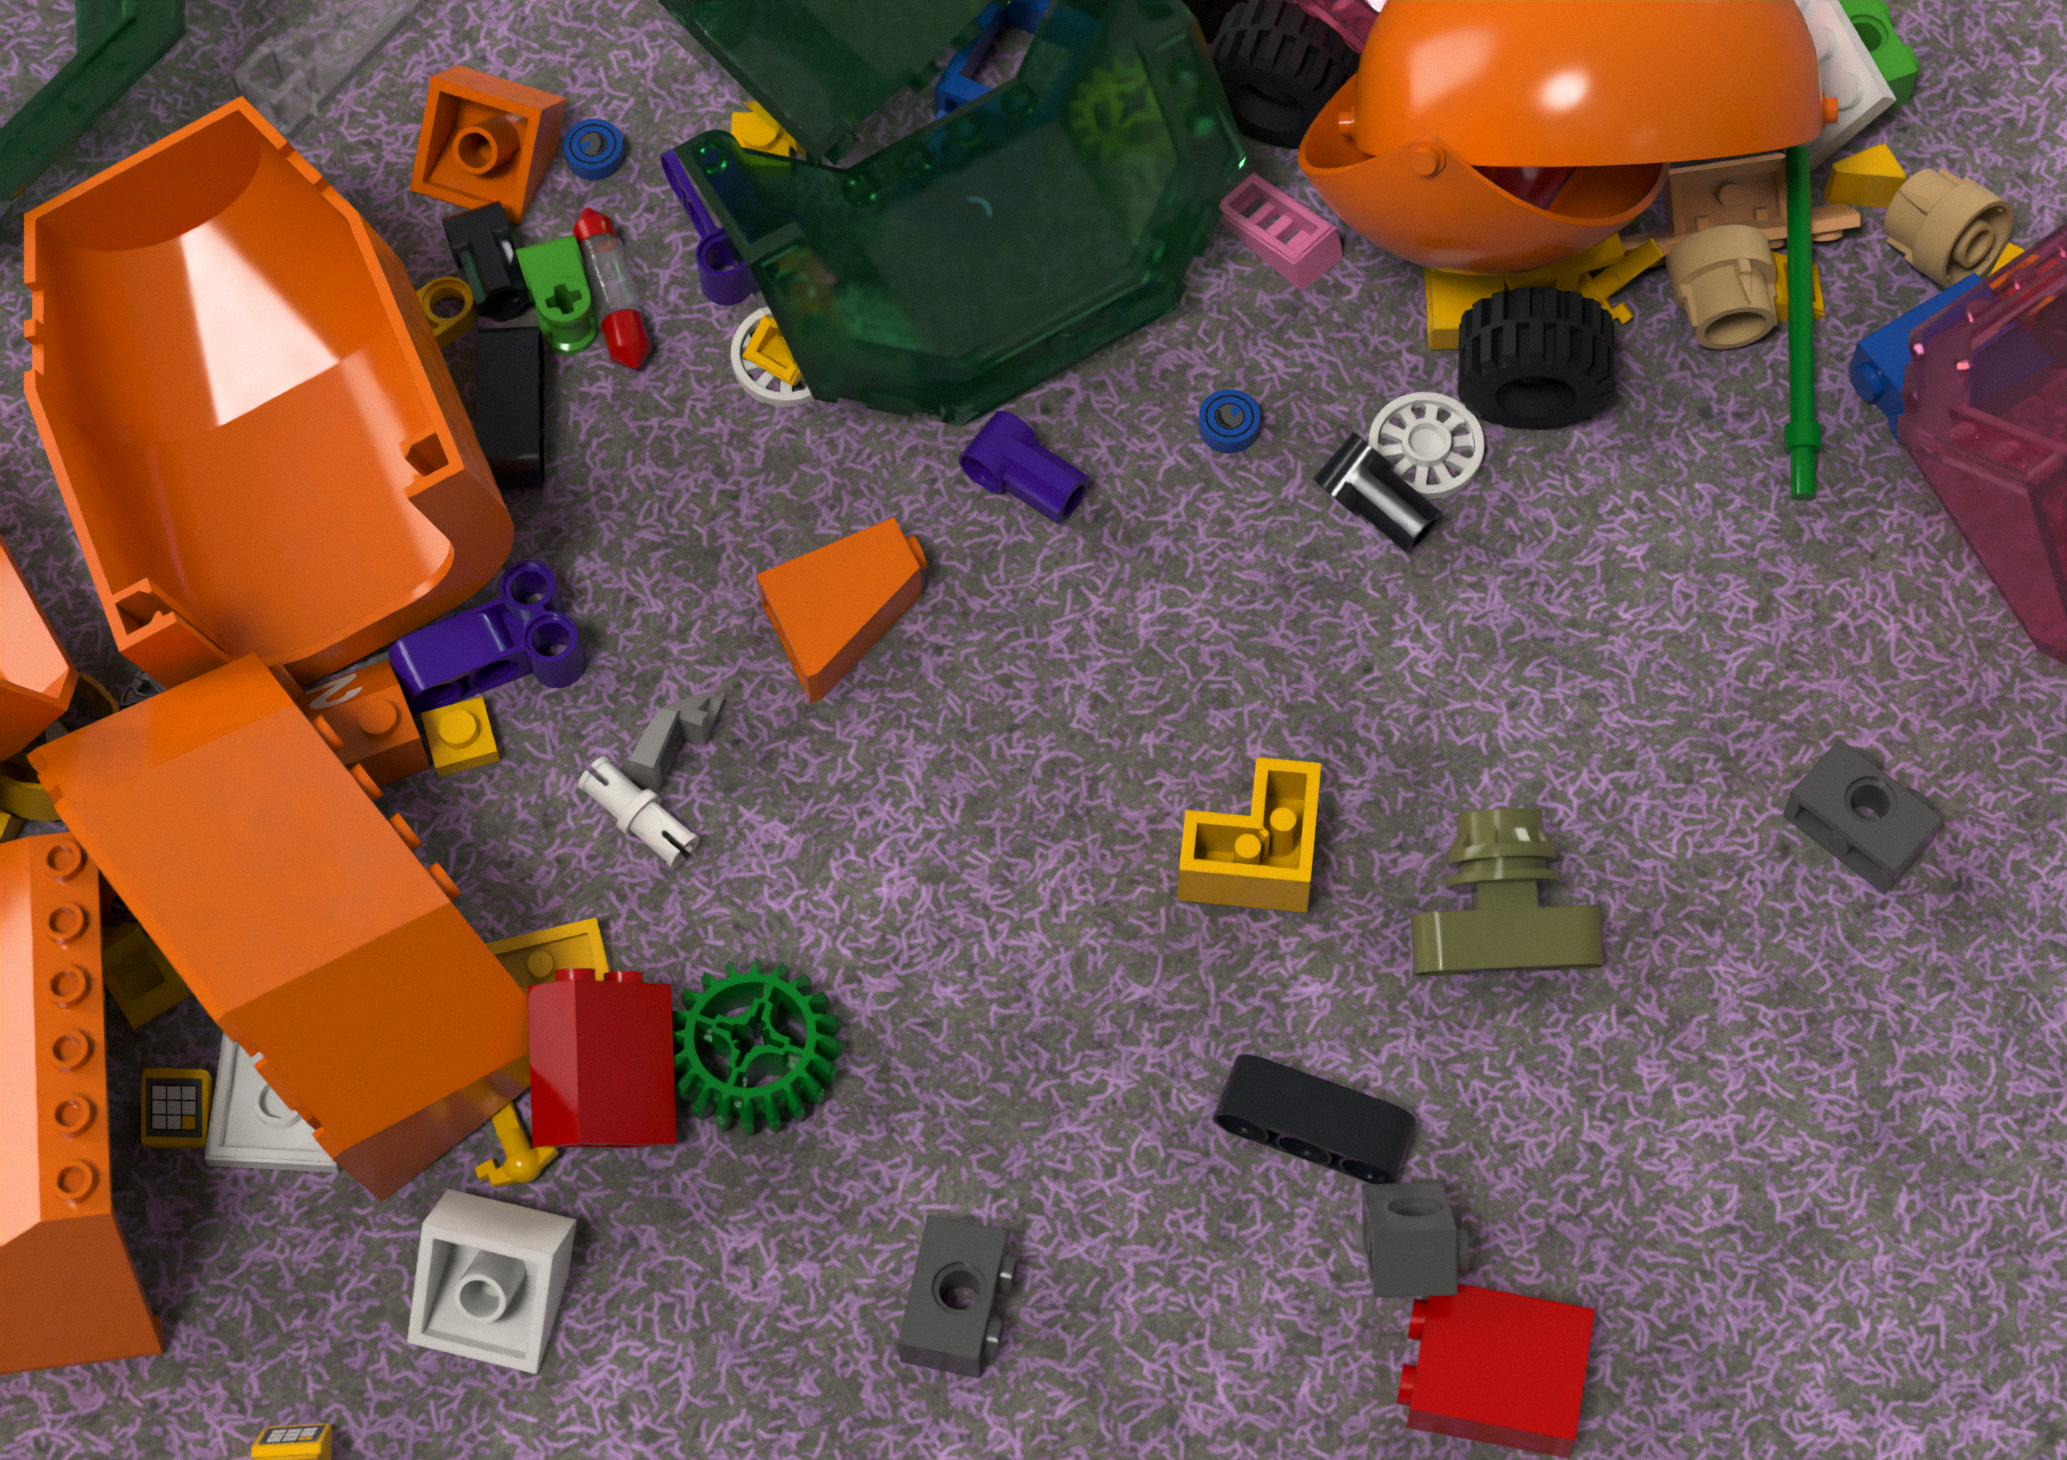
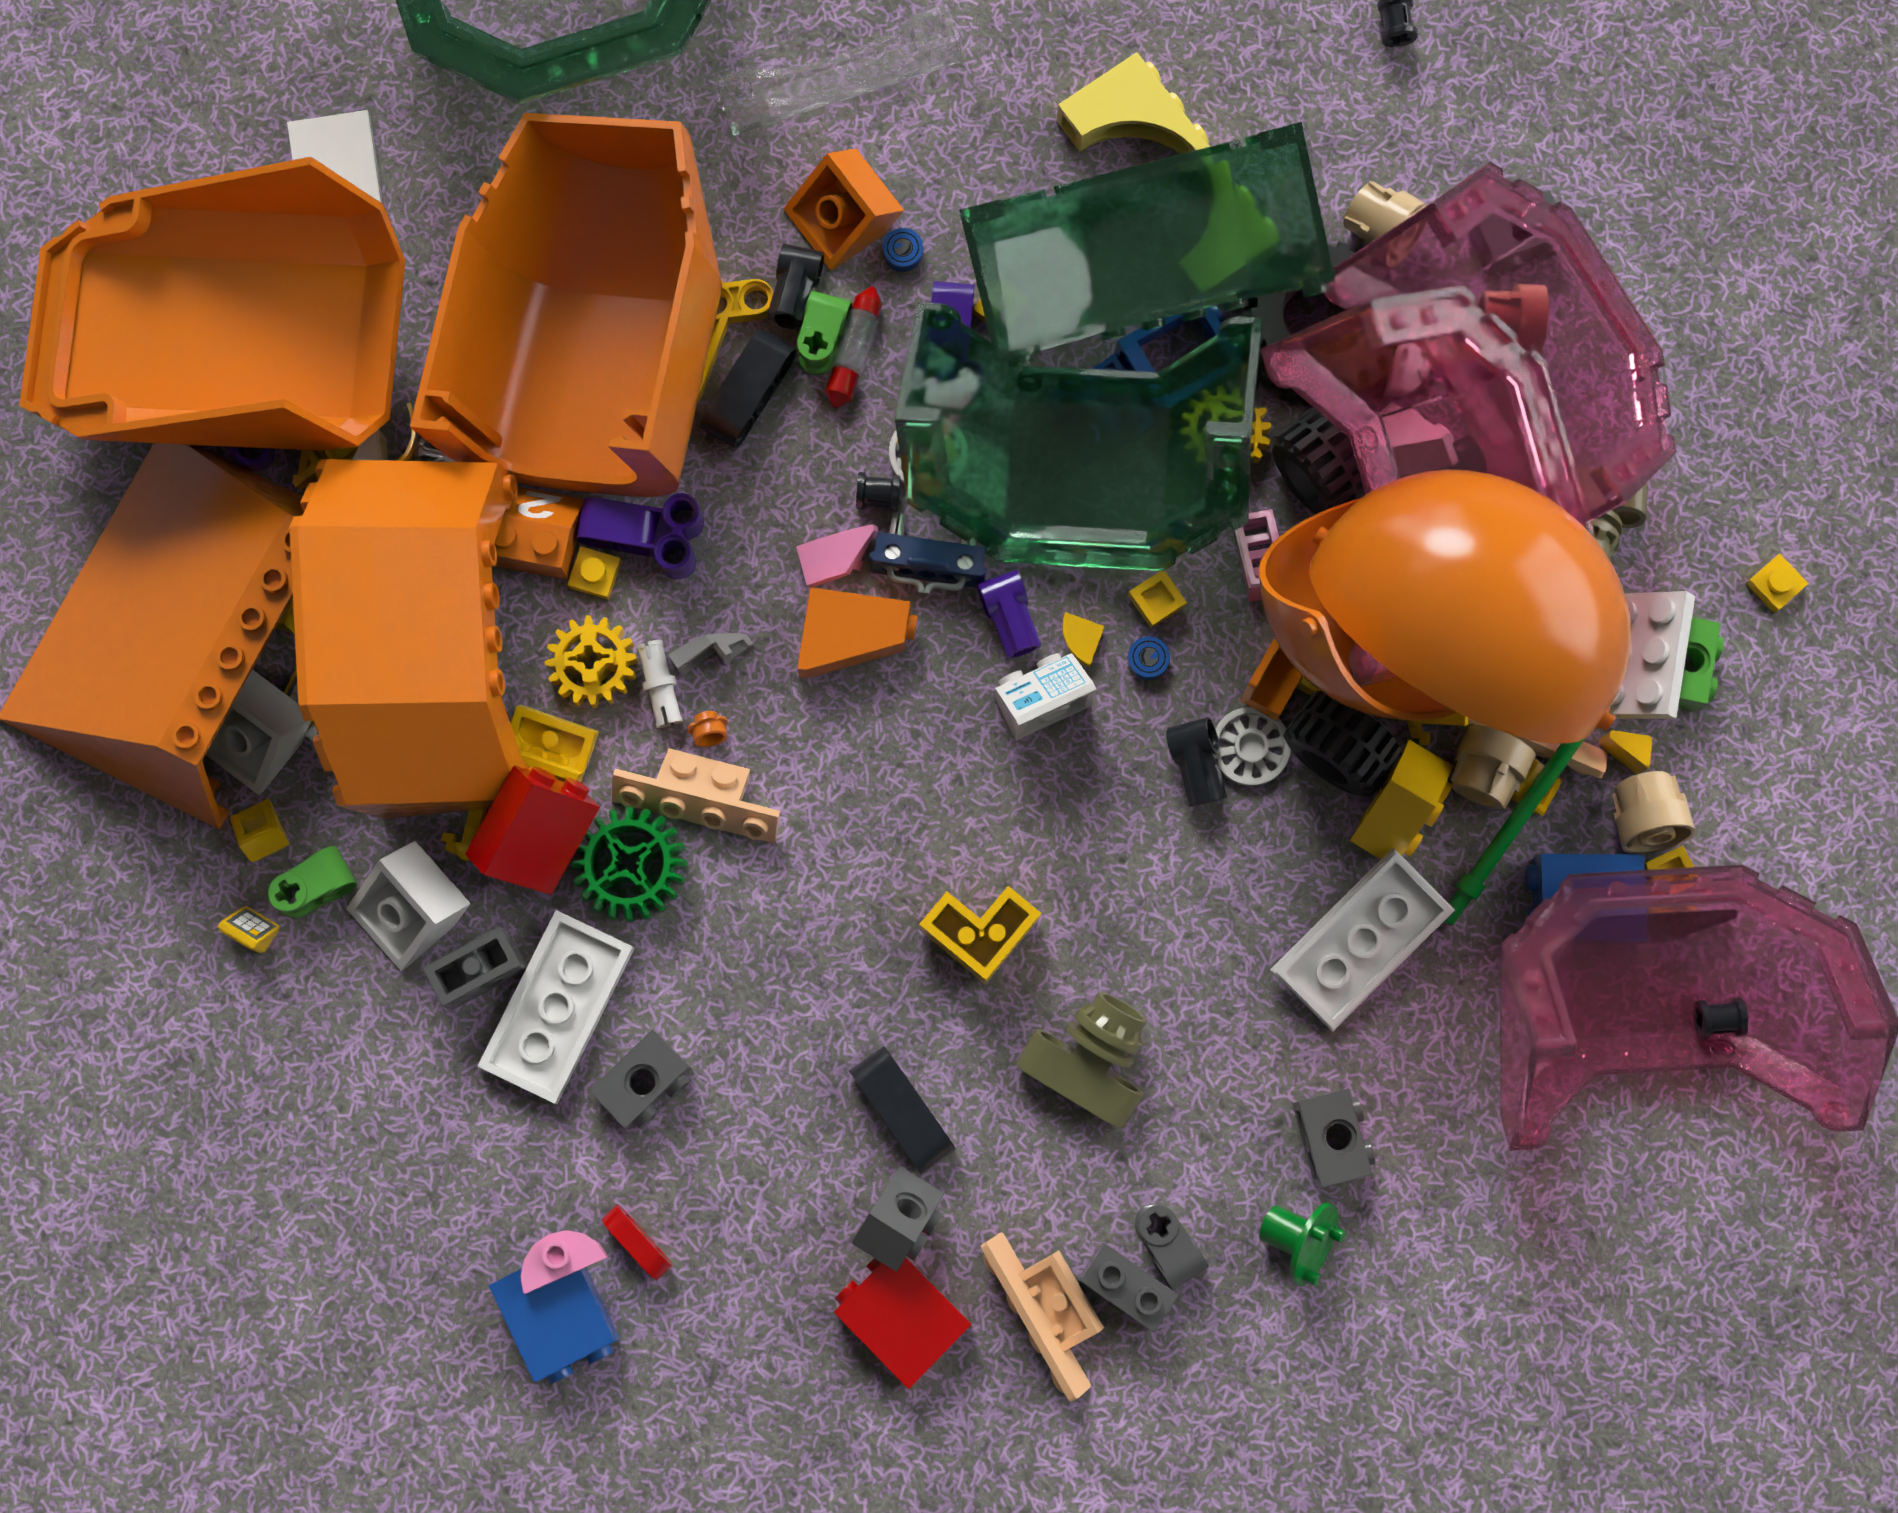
camera: 30 degrees right, 15 degrees up
(158, 1189) = (258, 734): none -> white slope
(222, 1318) = (259, 831): none -> yellow slope
(346, 1323) = (317, 881): none -> bright green piece
(514, 858) = (574, 660): none -> yellow gear
(639, 1292) = (475, 968): none -> dark grey brick
(740, 827) = (708, 729): none -> orange plate
(756, 531) = (835, 555): none -> bright pink slope
(760, 428) = (878, 491): none -> black bush
(777, 1282) = (556, 1007): none -> white plate
(784, 911) = (699, 793): none -> light nougat bracket
(877, 468) = (914, 558): none -> dark blue piece
(1130, 446) = (1081, 637): none -> yellow tile
(1137, 528) = (1044, 695): none -> white slope
(1191, 347) = (1157, 598): none -> yellow plate
(1397, 340) = (1271, 683): none -> orange panel
(1659, 391) = (1405, 802): none -> yellow brick
(1676, 1230) = (1050, 1308): none -> light nougat bracket
(1724, 569) = (1362, 939): none -> white tile
(1751, 1145) = (1128, 1287): none -> dark grey brick
(1768, 1067) = (1172, 1251): none -> dark grey piece
(1916, 949) = (1303, 1239): none -> green piece

